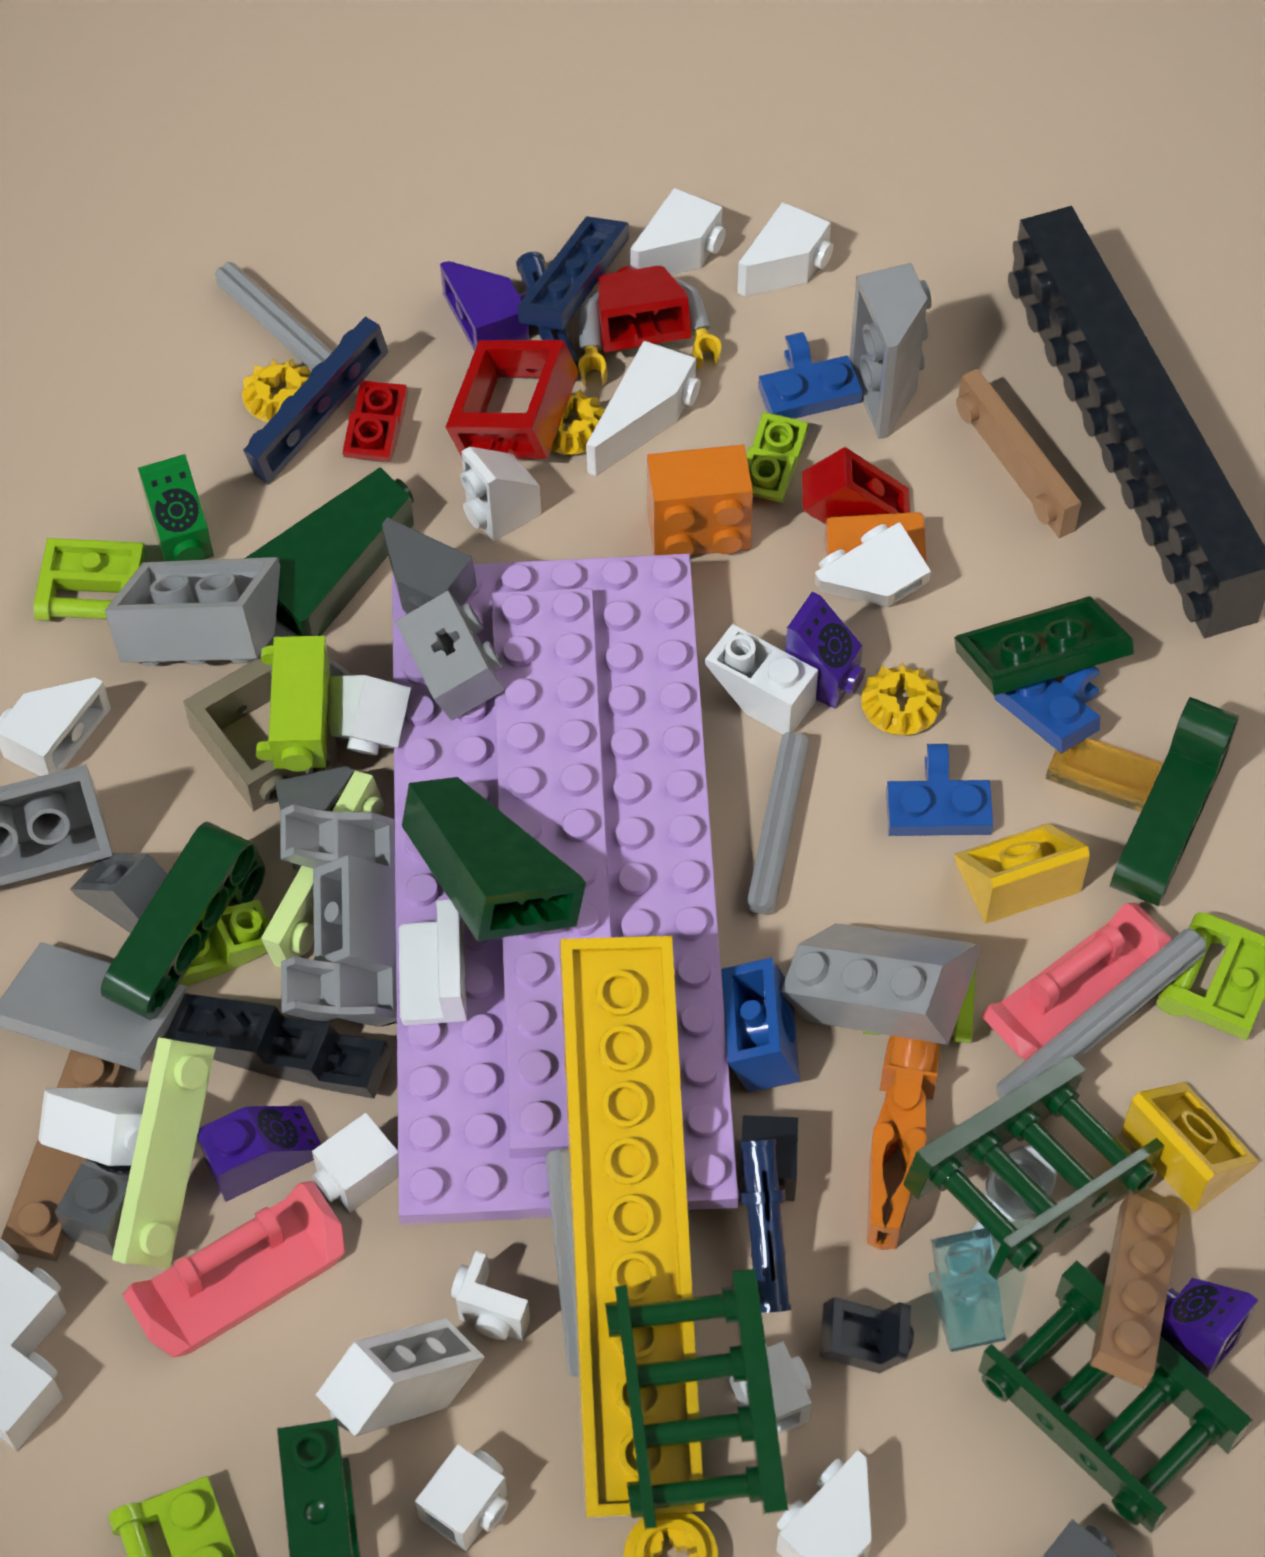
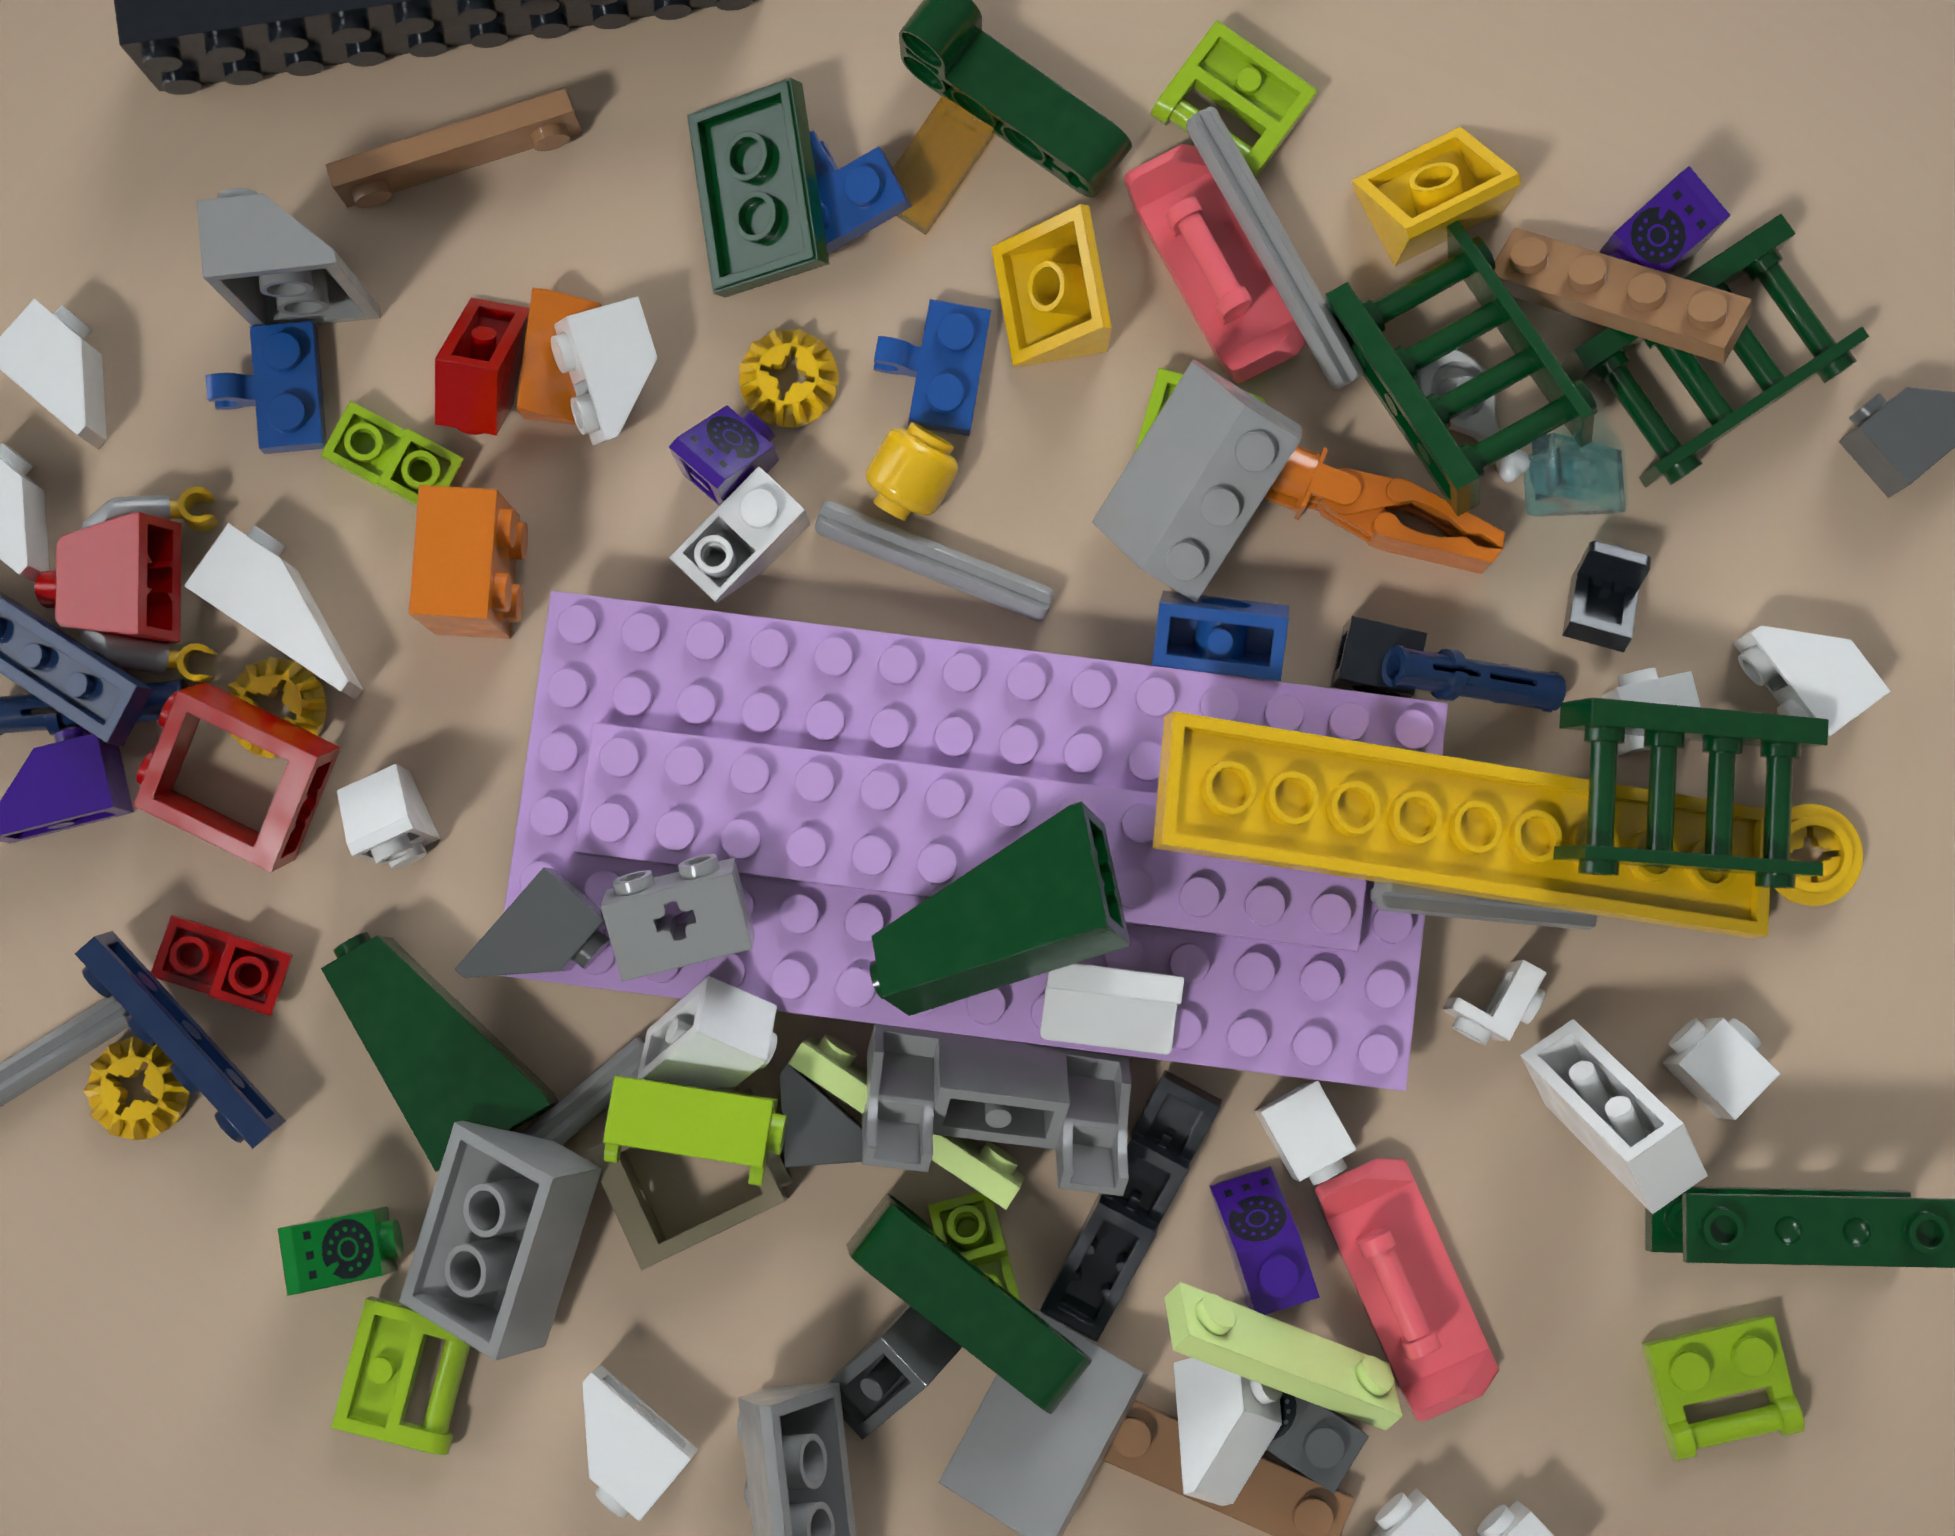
camera: 80 degrees left, 25 degrees up
(845, 788) = (911, 471): none -> yellow head

